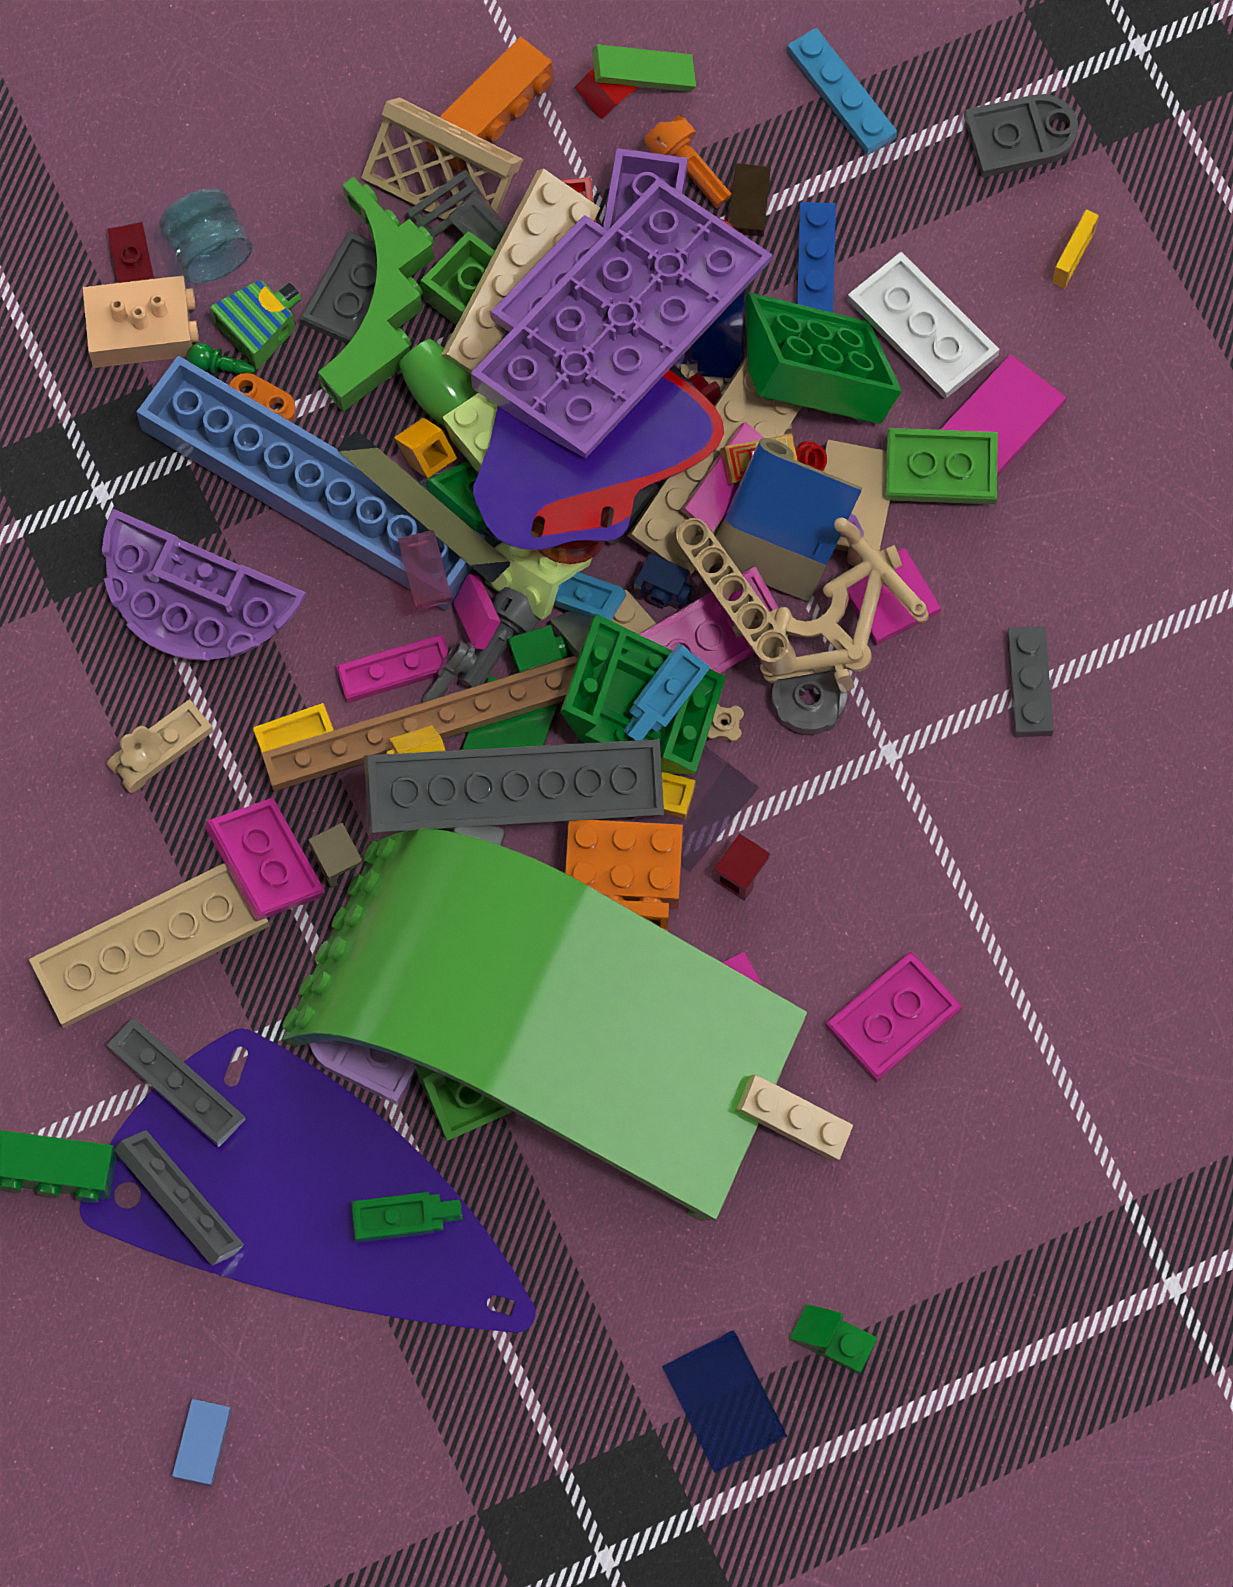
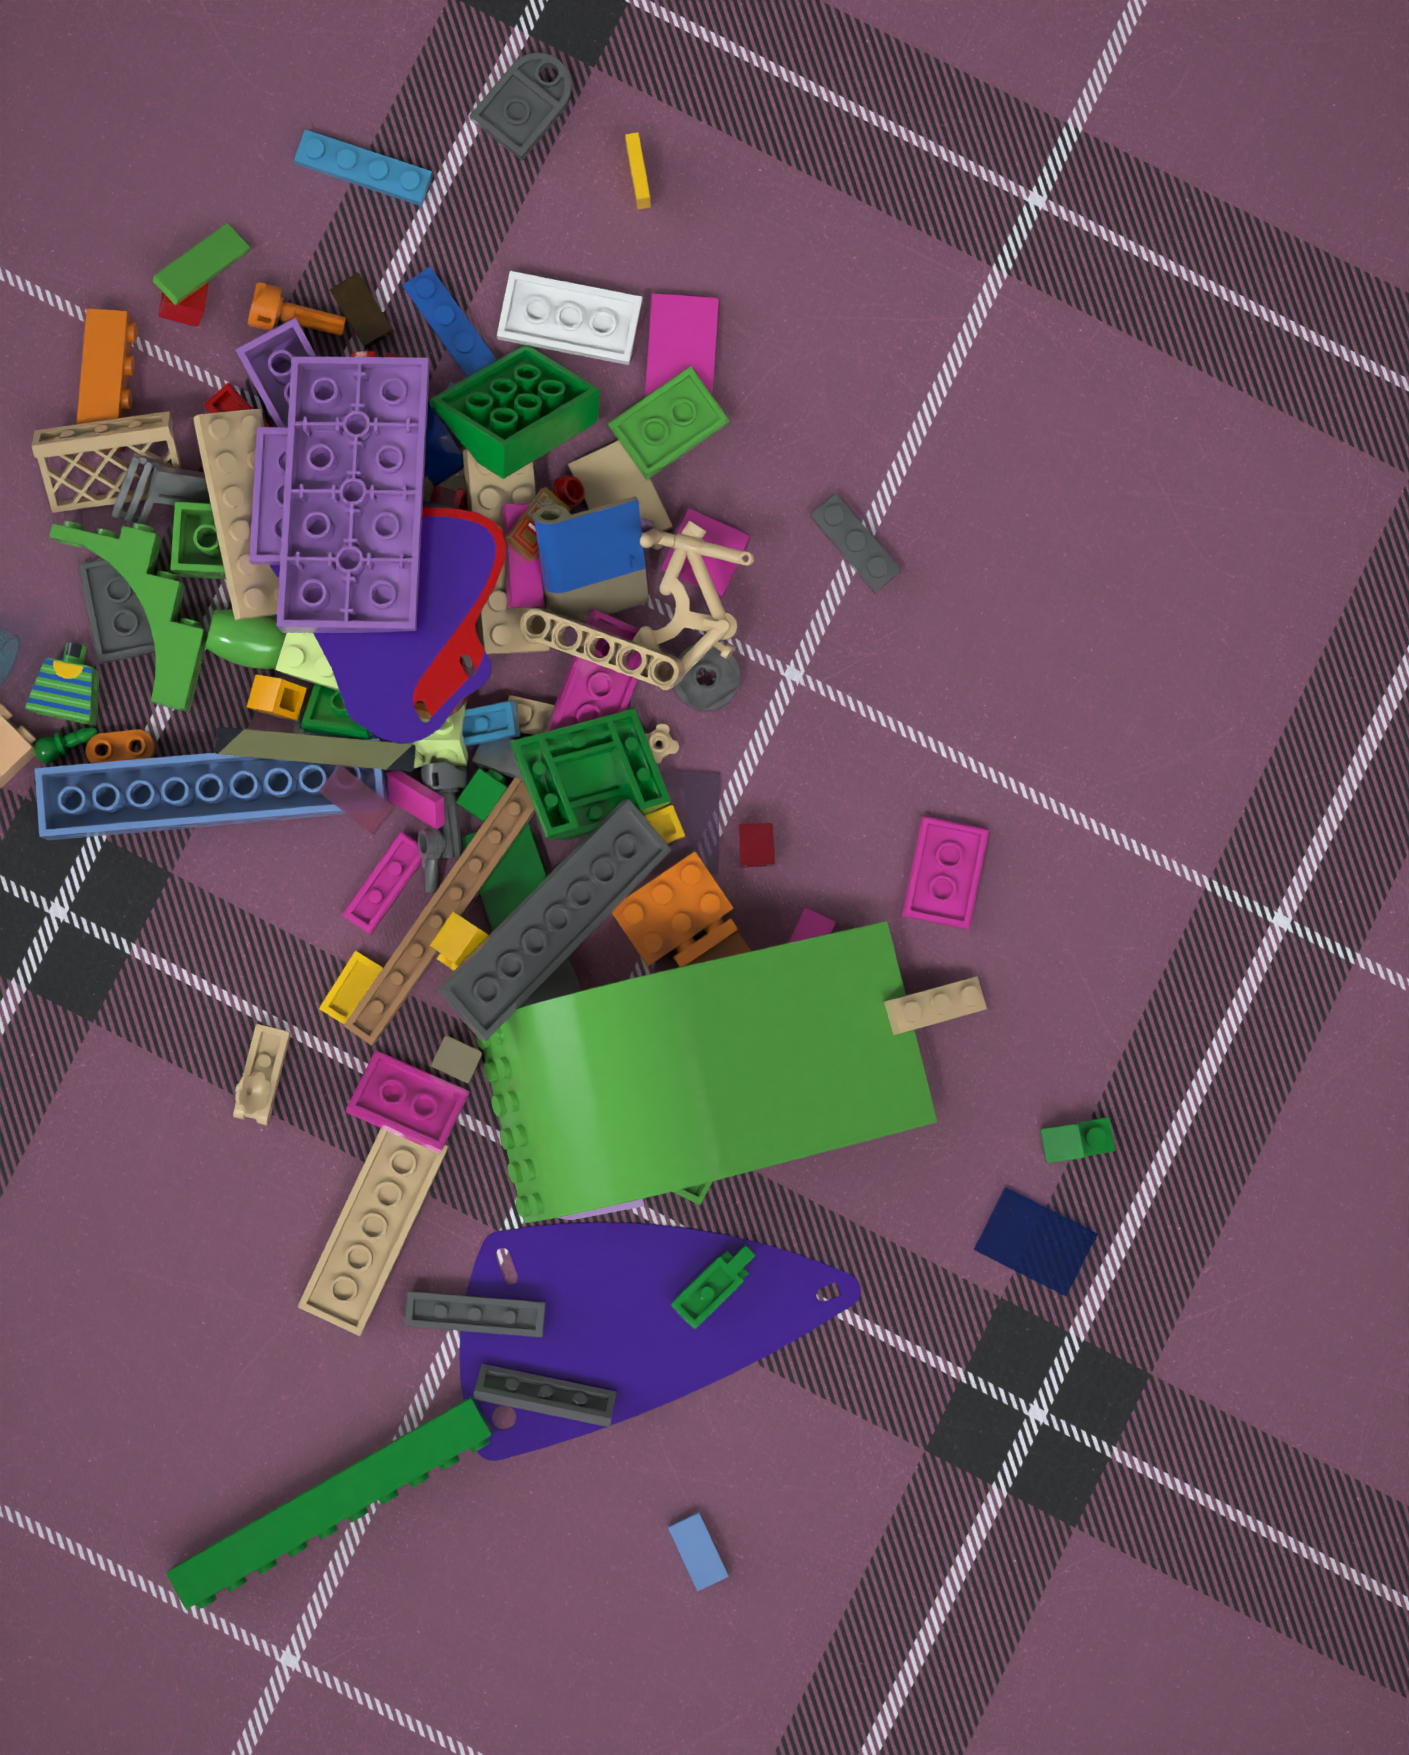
camera: 40 degrees left, 15 degrees up
(189, 597) = (192, 945): medium lavender brick -> none
(663, 583) = (534, 669): dark blue brick -> none
(666, 692) = (606, 760): dark azure hinge -> none

